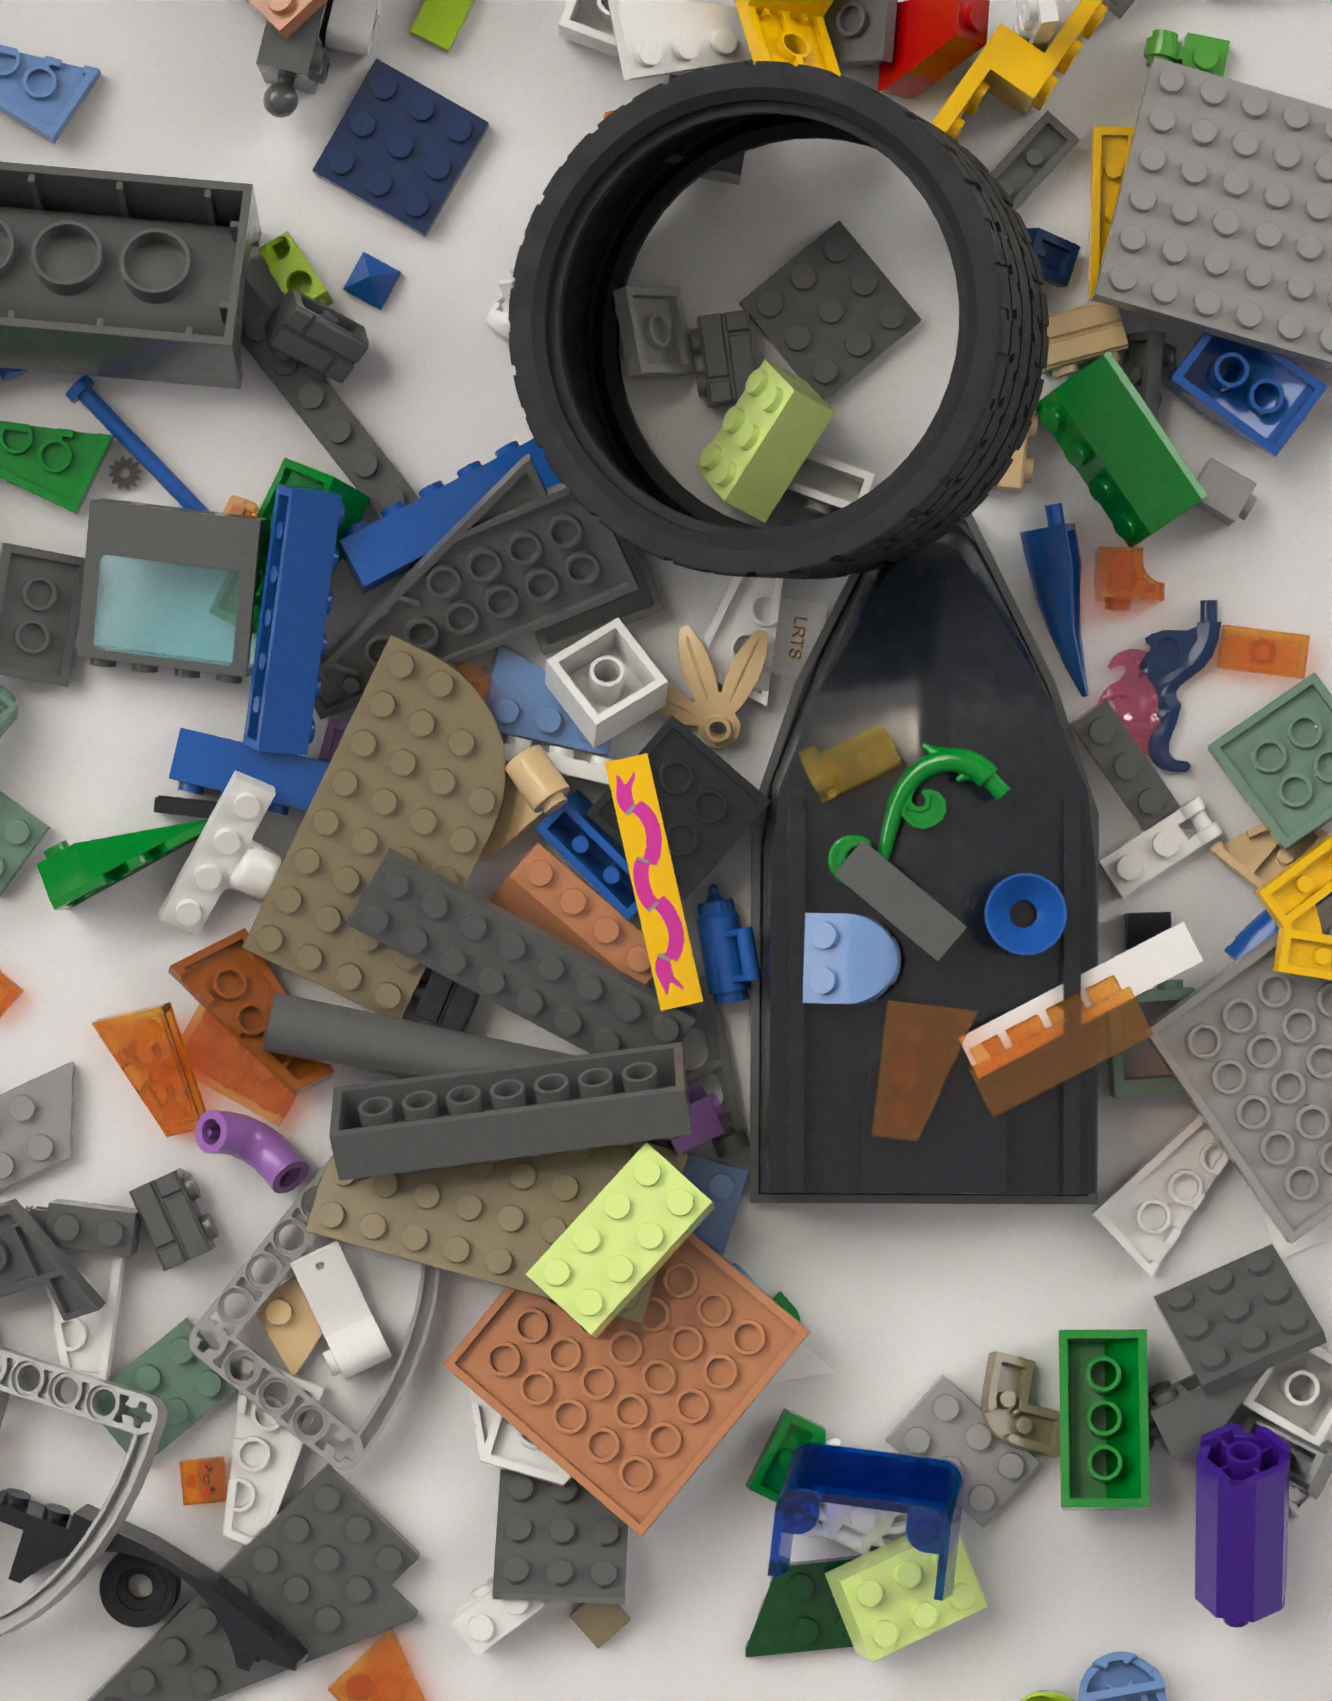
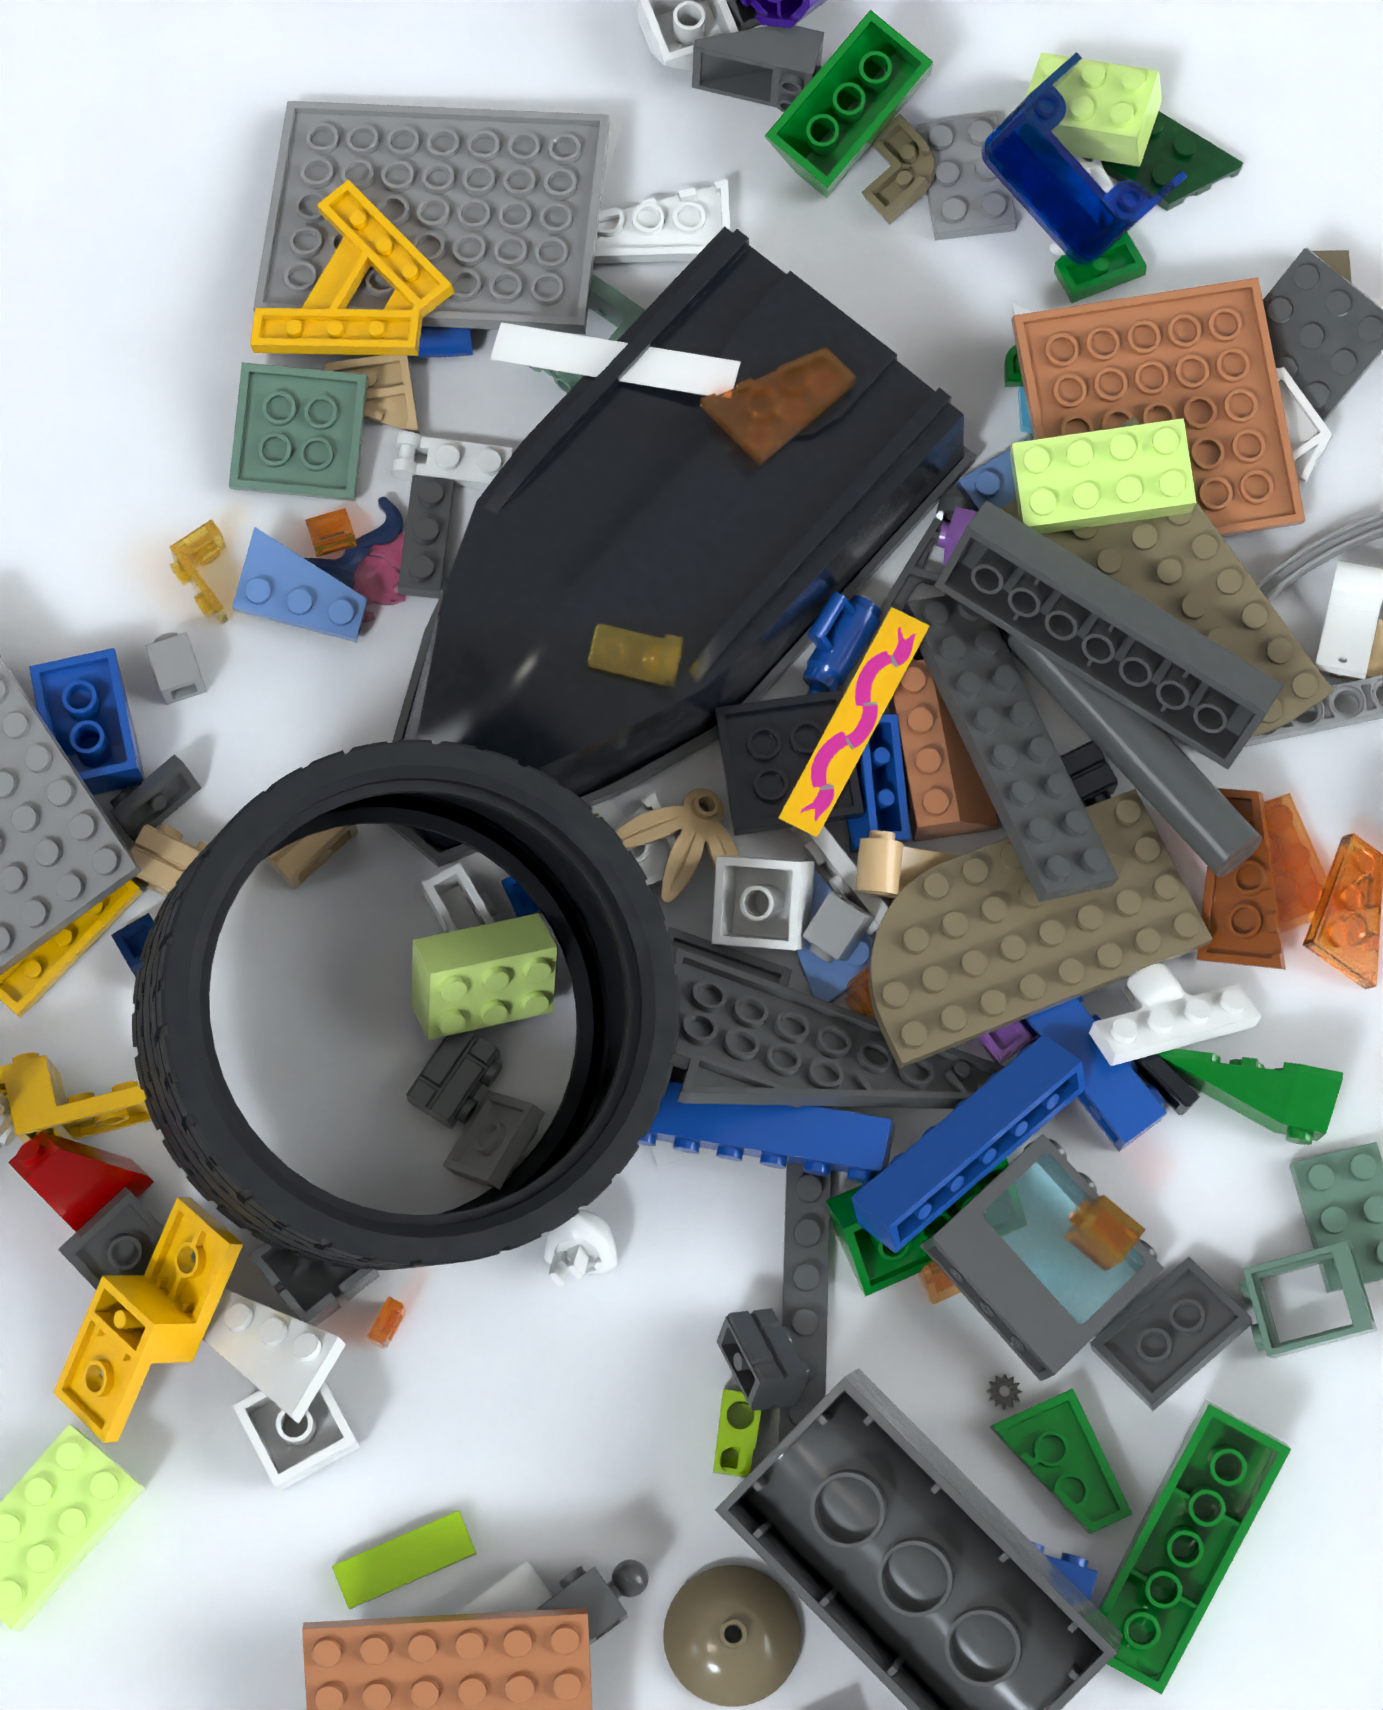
camera: 140 degrees left, 15 degrees down
(83, 392) = (978, 1401): blue bar -> none
(138, 635) = (1103, 1232): none -> clear orange brick
(209, 134) = (723, 1670): none -> dark tan dish
(254, 1144) = (1319, 793): medium lavender cylinder -> none
(372, 281) = (678, 1378): blue slope -> none
(400, 147) = (564, 1465): dark blue plate -> none
(532, 710) = (837, 928): none -> light grey brick
(830, 311) = (343, 1049): dark grey plate -> none
(847, 959) = (763, 518): medium blue slope -> none
(900, 900) = (688, 525): dark grey tile -> none
(938, 760) = (611, 568): green plant -> none
(1034, 158) = (86, 1030): dark grey plate -> none
(1049, 907) = (604, 422): blue piece -> none
(1054, 1054) = (663, 330): clear orange windscreen -> none
(1055, 574) = (355, 709): blue piece -> none
(1120, 450) = (221, 744): green slope -> none
(1123, 579) = (306, 666): clear orange brick -> none
(1144, 926) = (515, 411): black slope -> none
(1182, 629) = (295, 592): none -> medium blue wing
(1201, 705) = (331, 532): none -> clear orange tile
(1240, 1319) = (691, 93): dark grey plate -> none
(1263, 651) = (237, 520): clear orange plate -> none
(1288, 604) = (196, 549): none -> clear yellow bracket

